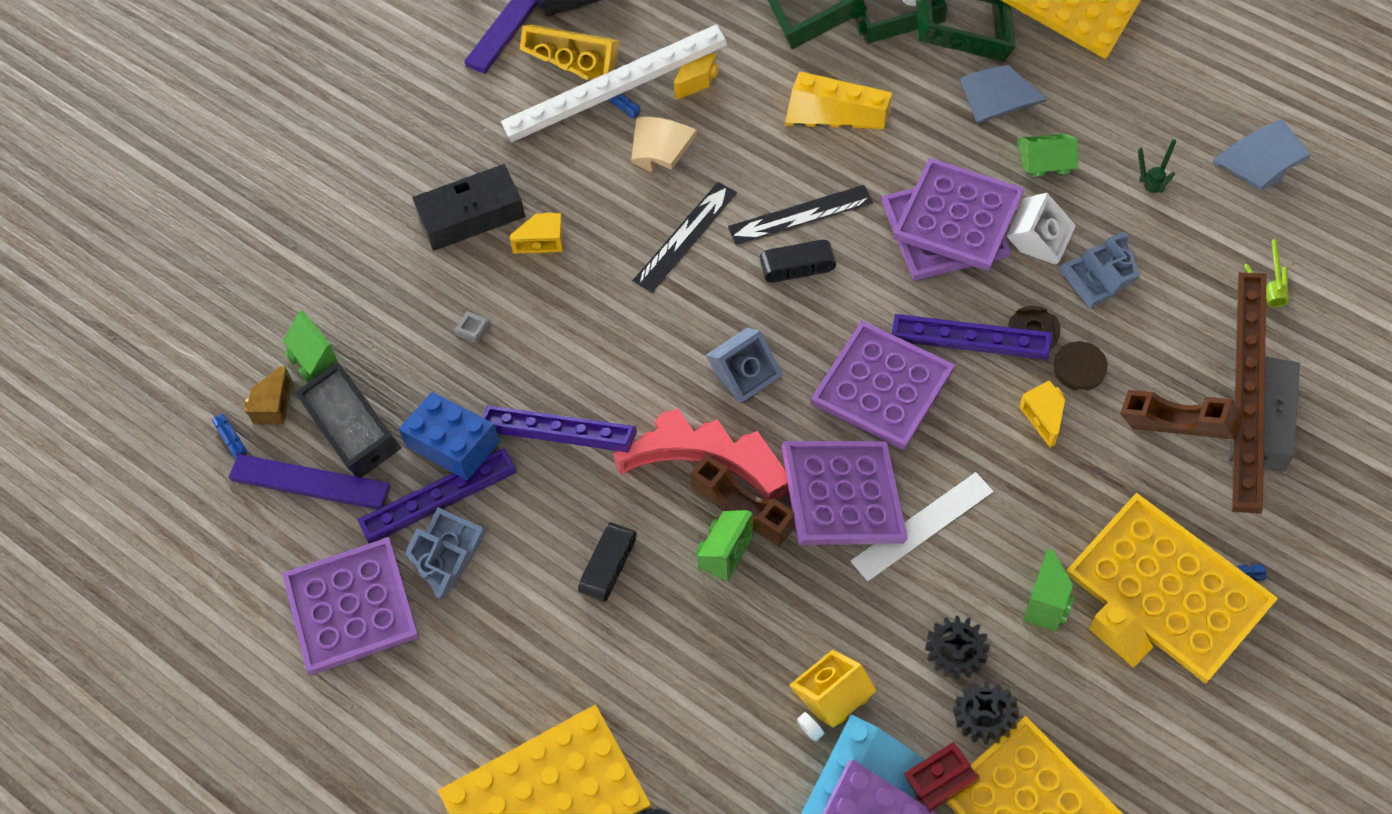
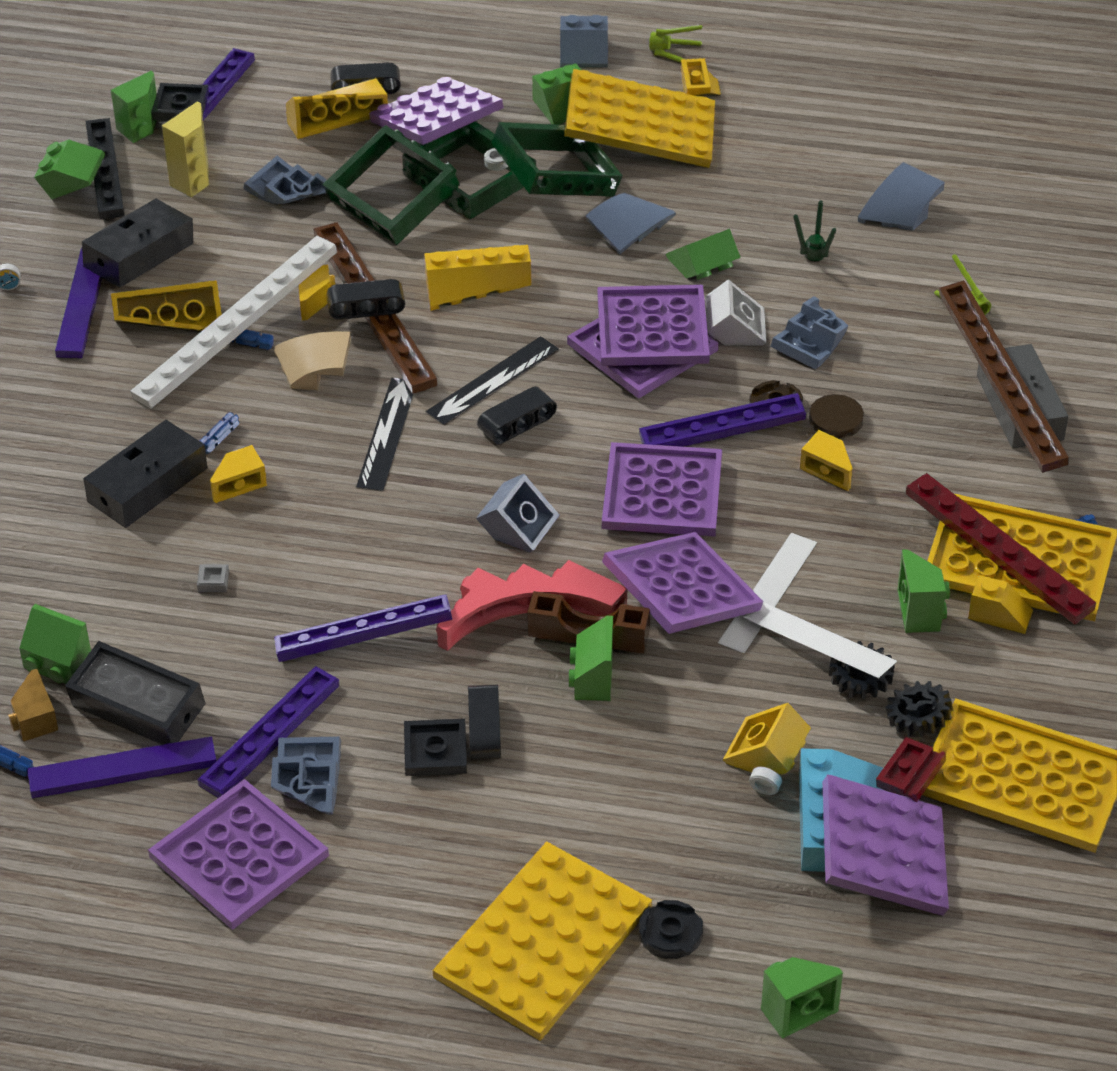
camera: 30 degrees left, 15 degrees down
(449, 435) = (255, 670): blue brick -> none
(549, 186) = (220, 432): none -> axle
(555, 569) = (435, 747): none -> black plate
(727, 100) = (365, 299): none -> black beam
(737, 109) = (387, 328): none -> reddish brown plate
(935, 605) = (821, 640): none -> white sticker
(1153, 575) = (1001, 548): none -> dark red plate
(1210, 419) = (926, 425): reddish brown arch -> none

